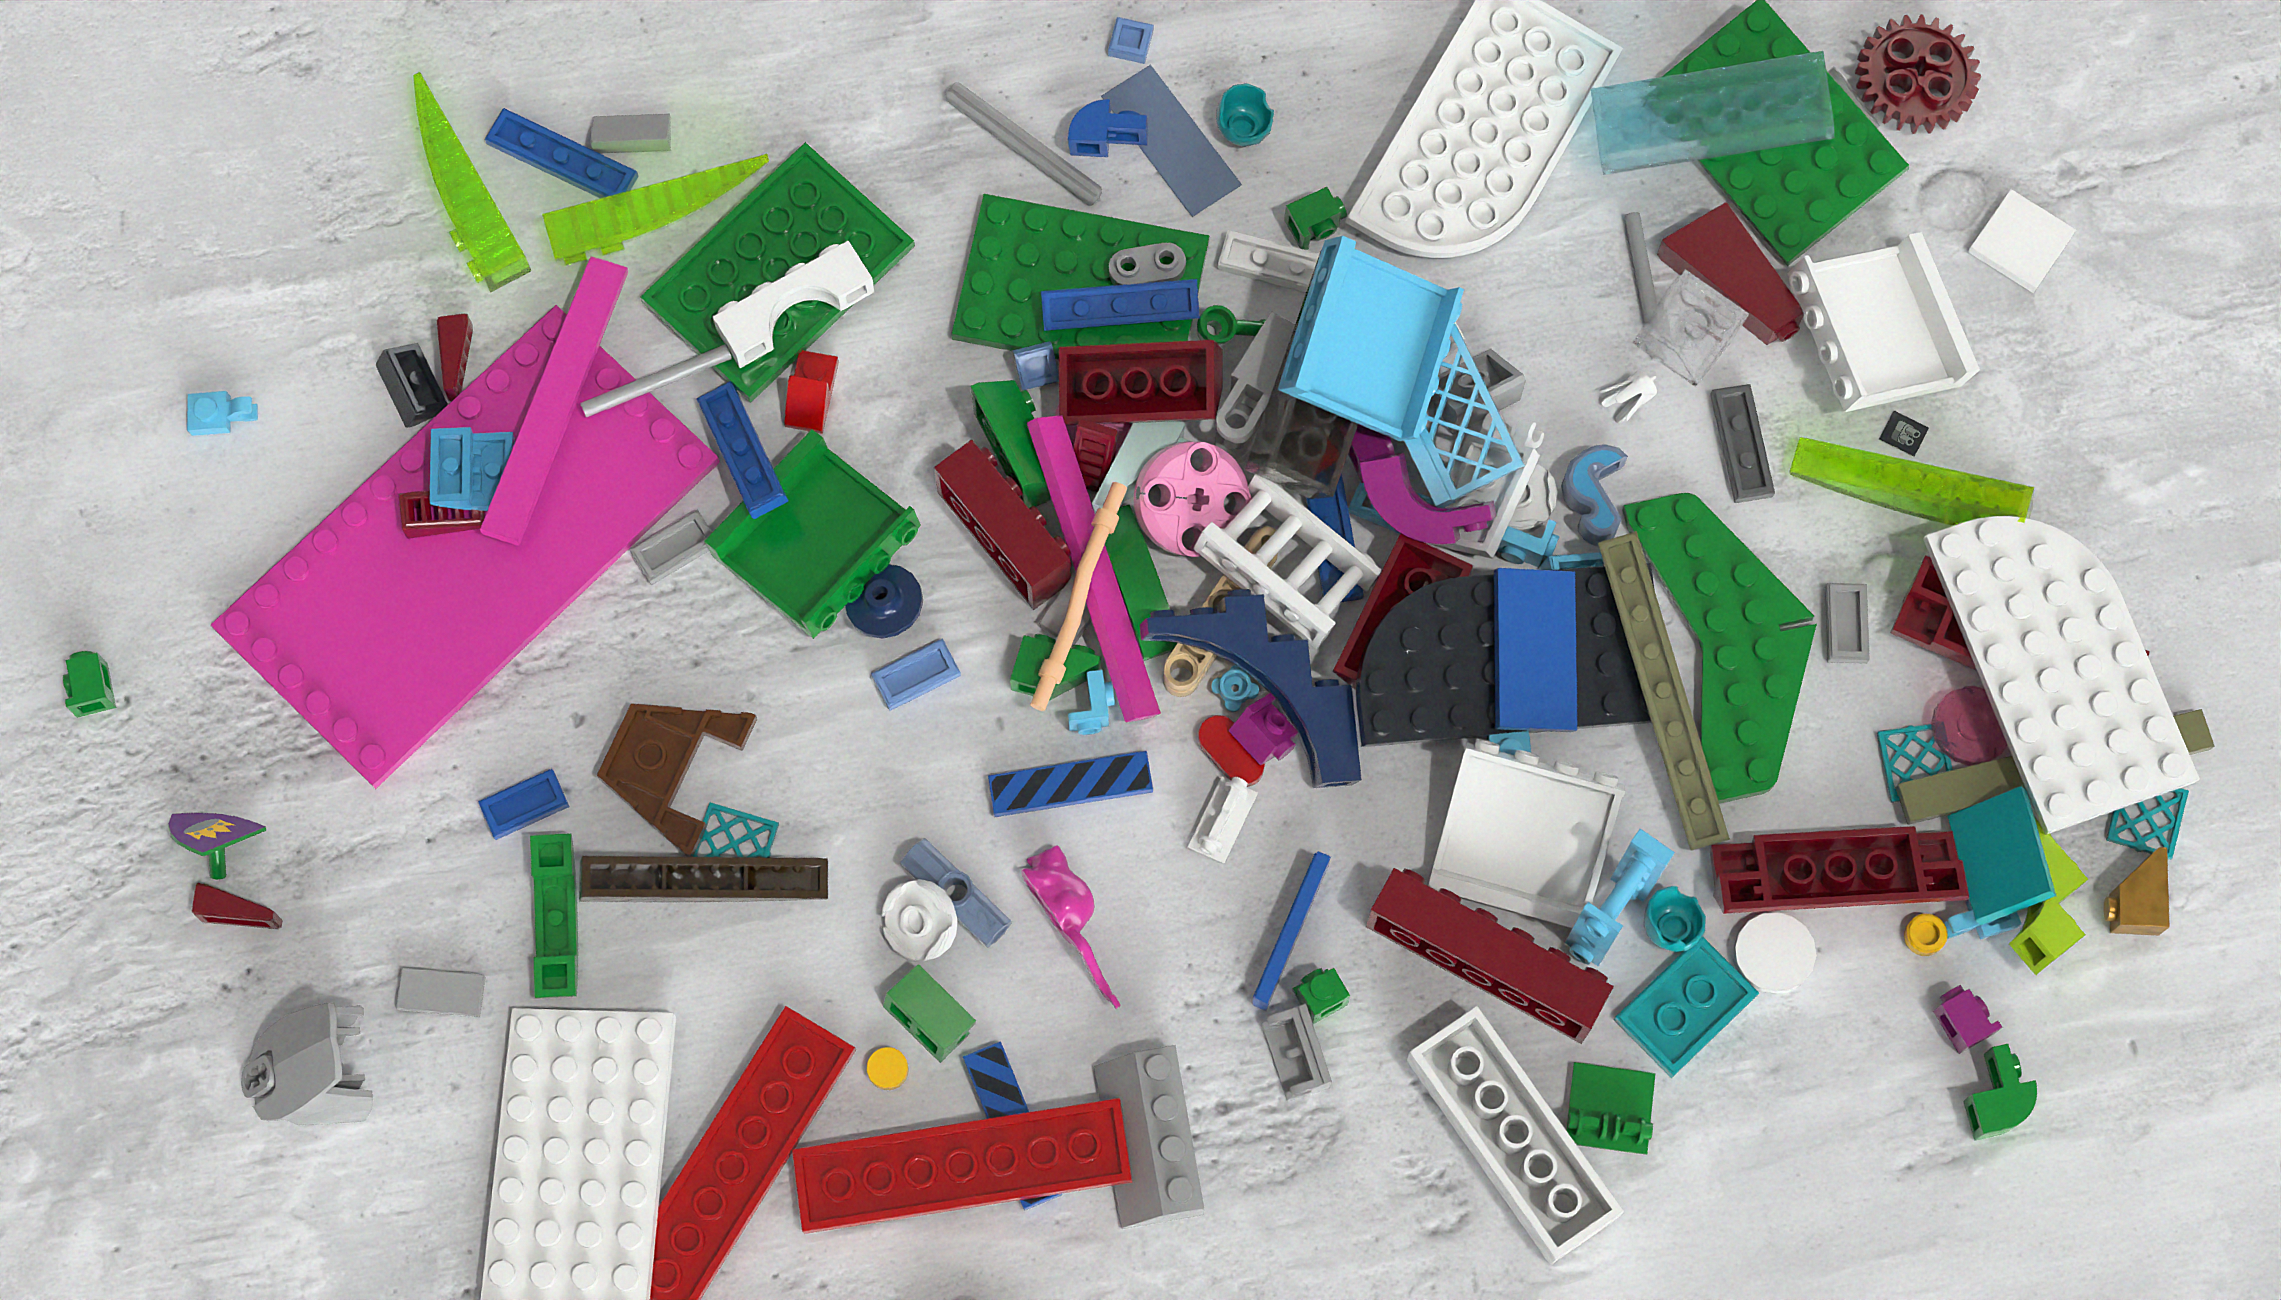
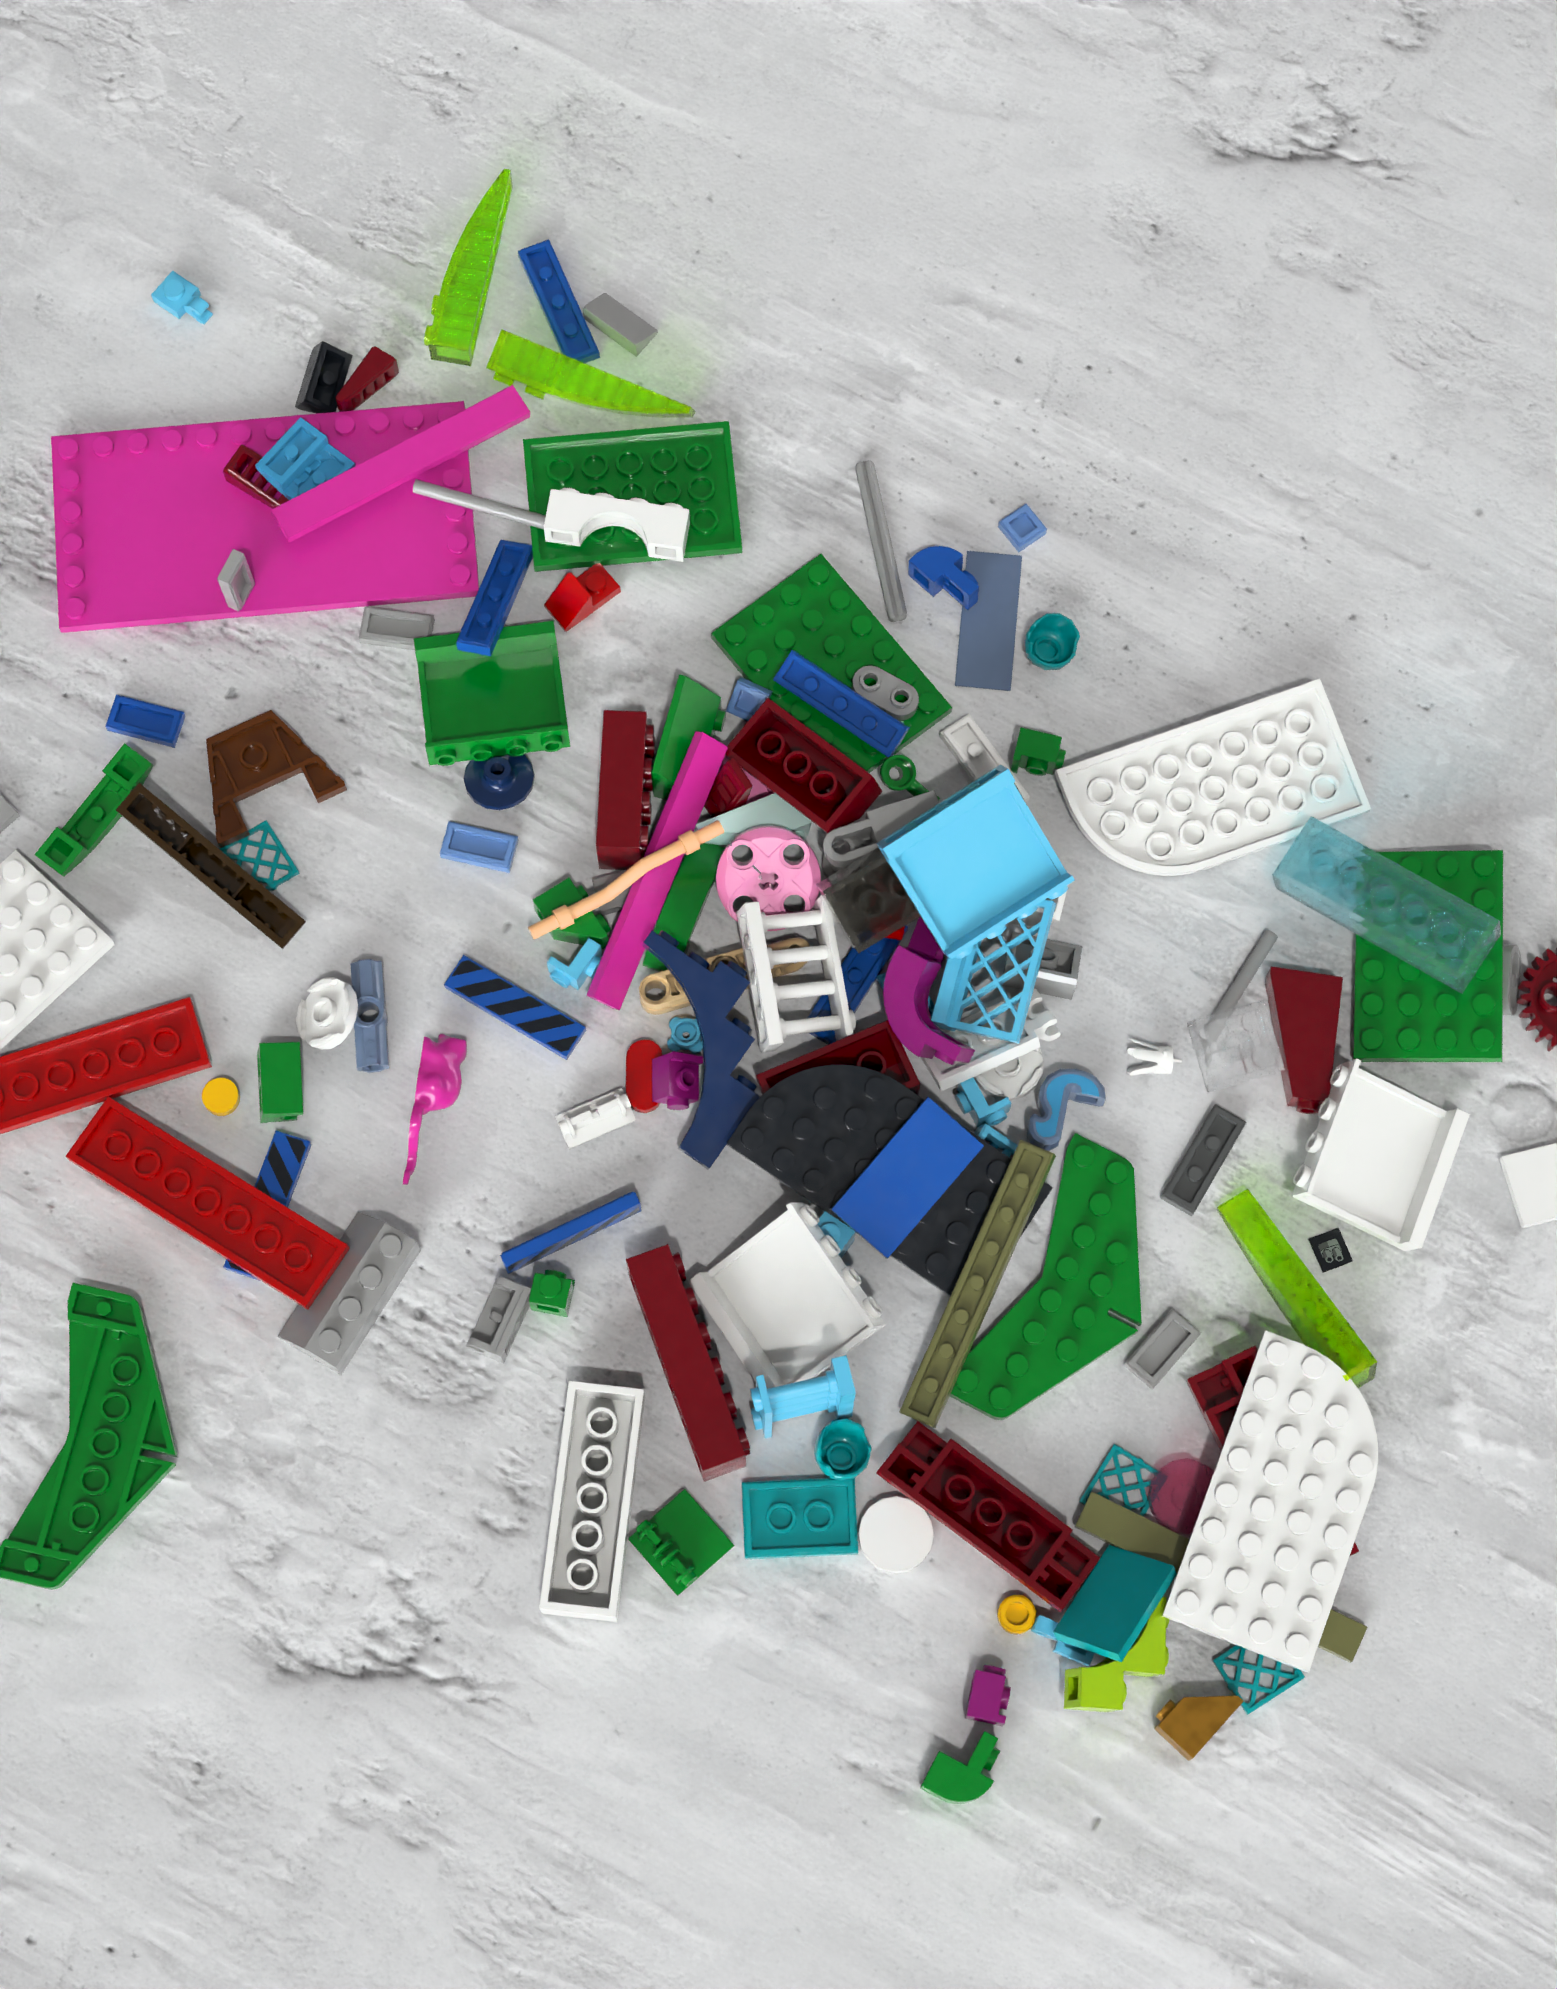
camera: 40 degrees right, 0 degrees up
(505, 614) = (236, 580): none -> light grey tile

